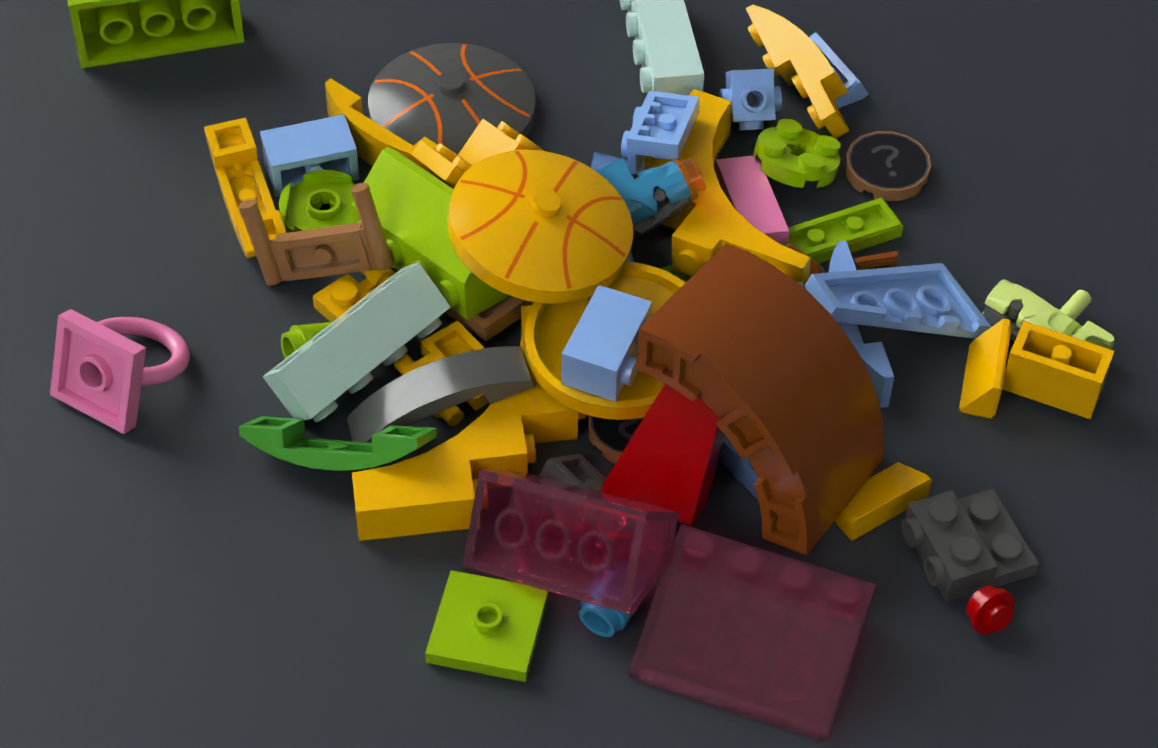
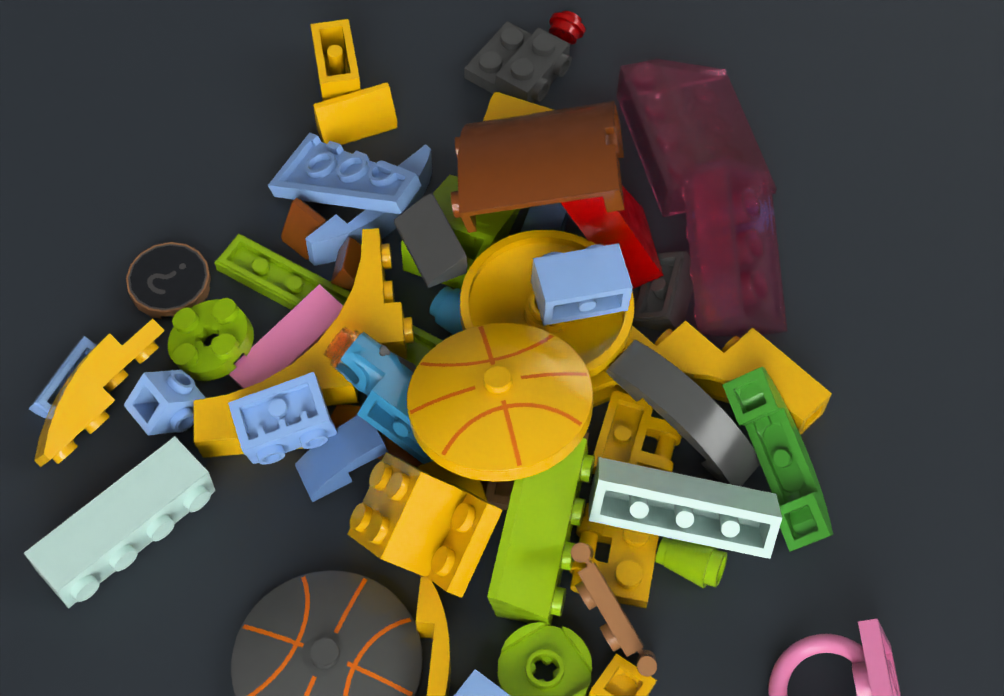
camera: 125 degrees left, 10 degrees up
(487, 626) = (822, 285): lime plate -> none
(1021, 304) = (288, 100): yellowish green piece -> none

